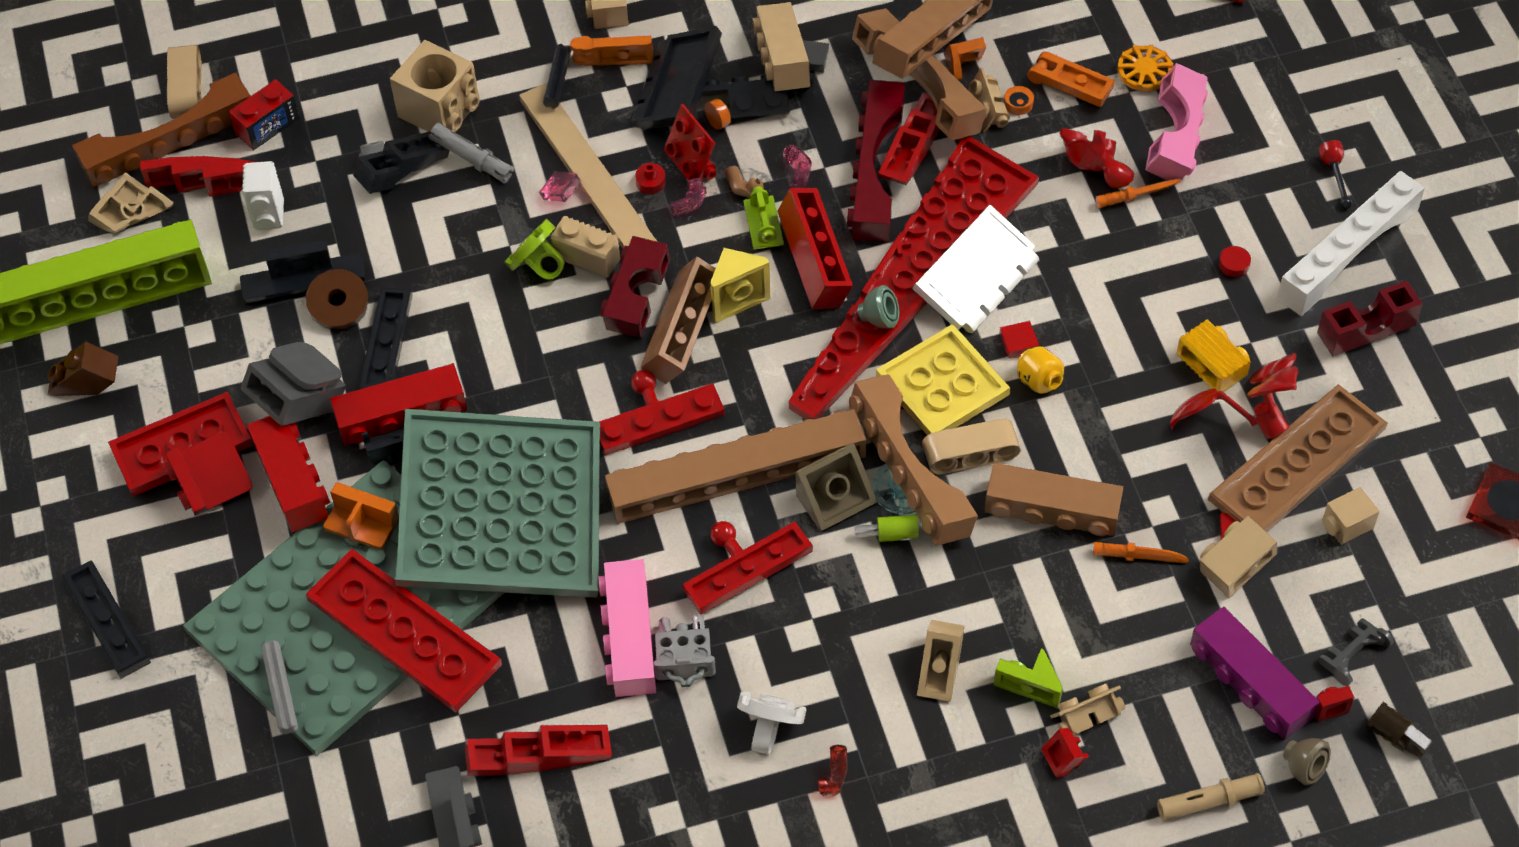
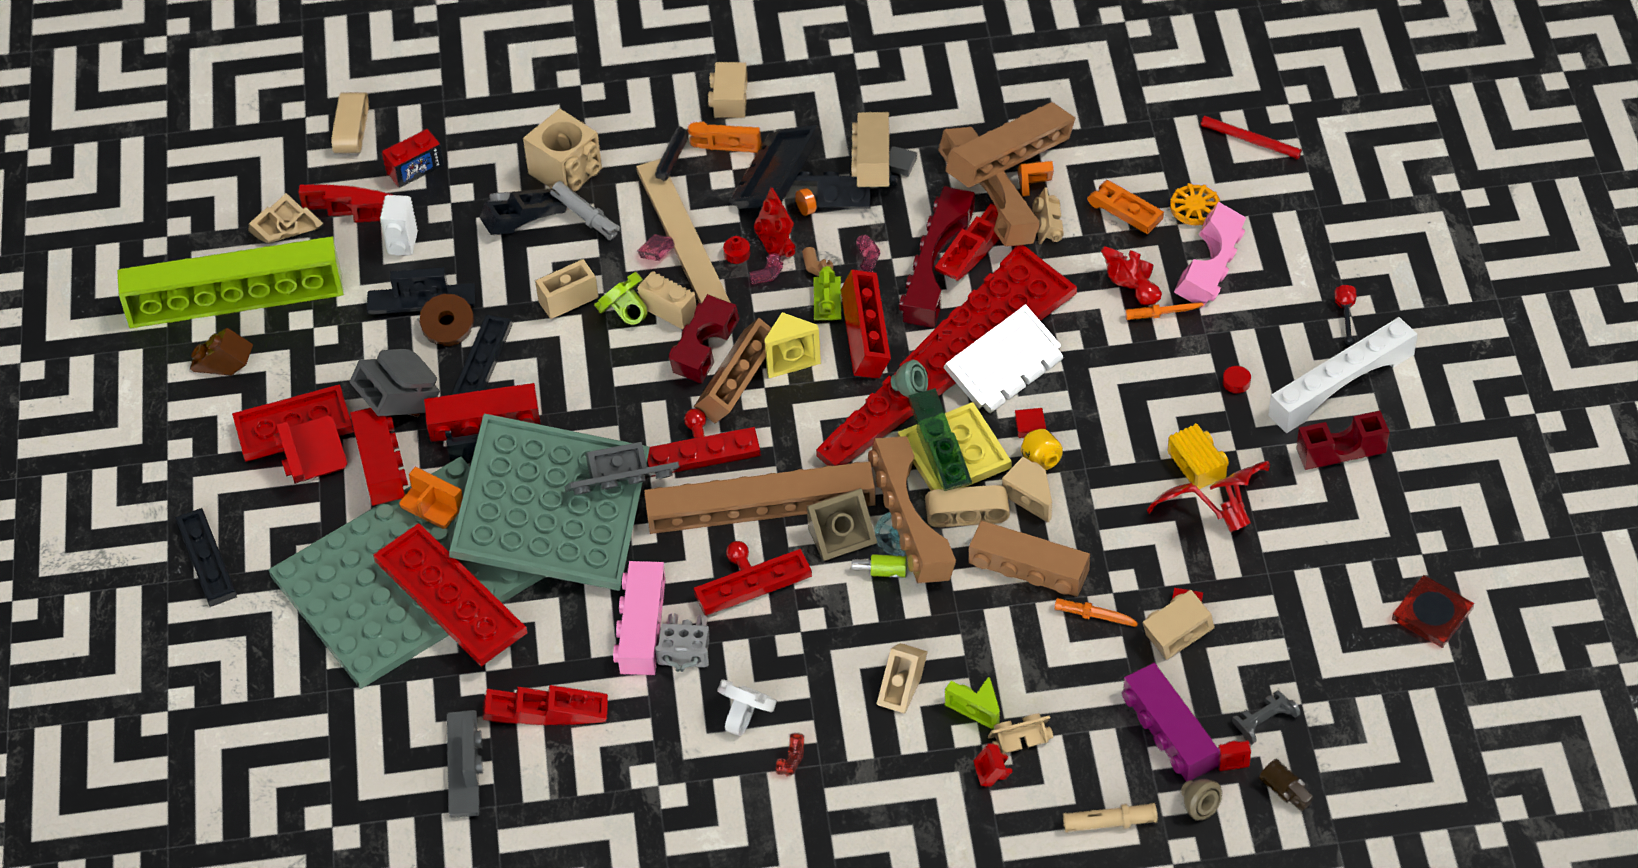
camera: 10 degrees right, 5 degrees down
(113, 156) = (274, 178): dark orange arch -> none
(279, 687) = (338, 627): light grey axle -> none
(469, 247) = (566, 289): none -> tan brick
(570, 449) = (616, 465): none -> dark grey bracket
(926, 376) = (938, 440): none -> clear green slope
(1018, 100) = (1076, 220): orange tile -> none
(1038, 417) = (1029, 488): none -> tan slope
(1299, 460) = (1254, 552): medium nougat tile -> none
(1350, 515) = (1286, 604): tan brick -> none

